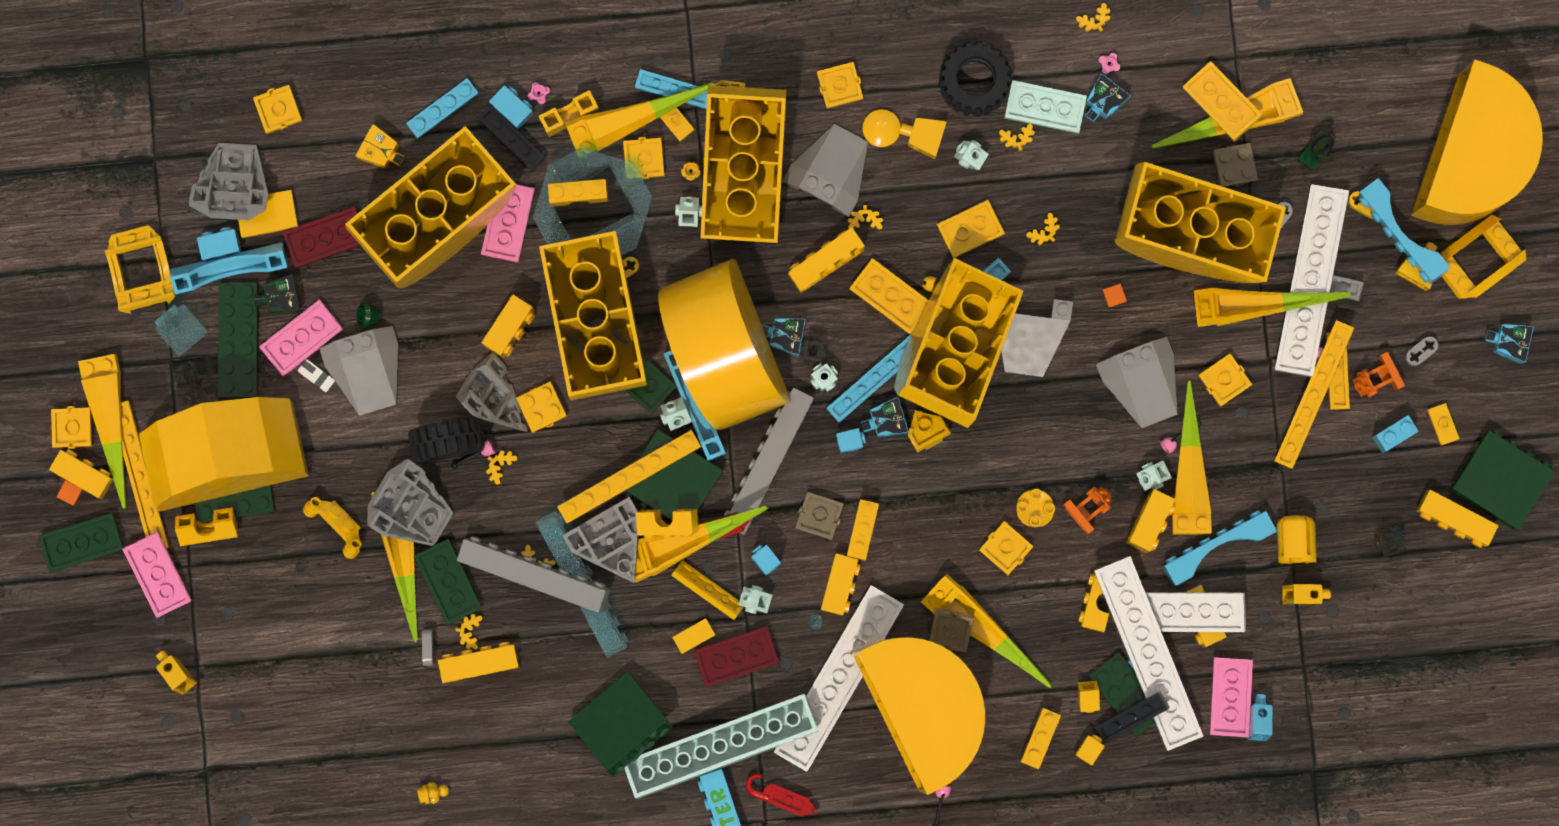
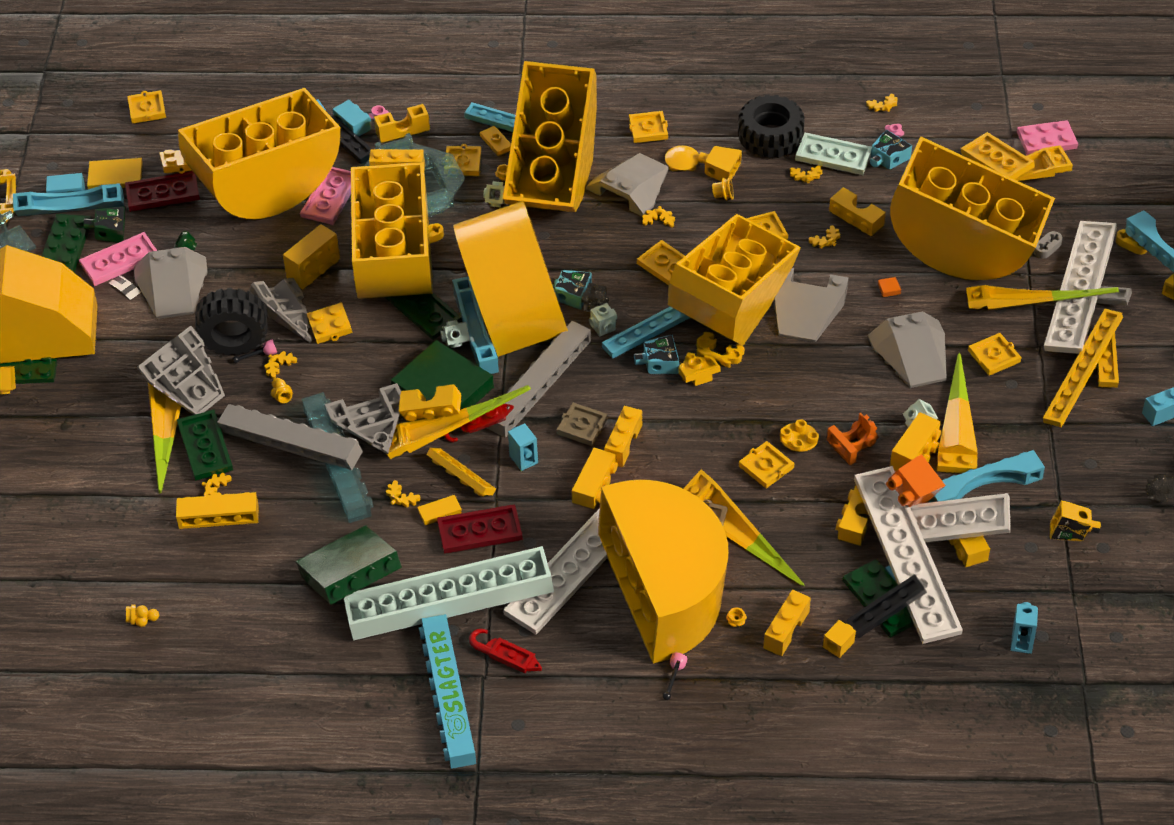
camera: 10 degrees right, 35 degrees down
(231, 184) = (86, 148): light grey wedge -> none
(334, 193) = (173, 161): none -> yellow plate
(339, 521) = (111, 386): yellow plate -> none
(427, 647) = (170, 493): light grey beam -> none
(510, 505) = (281, 391): none -> yellow piece
(606, 127) = (447, 130): yellow plate -> none
(629, 476) = (400, 370): yellow plate -> none
(645, 620) = (394, 492): none -> yellow animal
(755, 599) = (506, 479): light aqua brick -> none
(815, 621) = (566, 508): clear light blue hinge -> none
(826, 260) = (620, 235): yellow wedge -> none
(850, 440) = (621, 368): medium azure brick -> none
(931, 176) = (723, 189): none -> yellow piece
(970, 155) = (761, 176): light aqua brick -> none
(992, 728) = (736, 613): none -> yellow plate
(1060, 186) = (867, 219): none -> yellow arch
(1088, 696) = (841, 590): yellow brick -> none
(1152, 579) = (915, 482): none -> orange hips
(1169, 444) = (937, 398): bright pink hinge -> none
(1231, 697) = (993, 608): bright pink plate -> none
(1275, 55) = (1047, 135): none -> bright pink plate
(1296, 539) = (1064, 476): yellow cylinder -> none
(1317, 150) = (1088, 198): piece -> none
(1387, 373) = (1154, 359): orange tile -> none

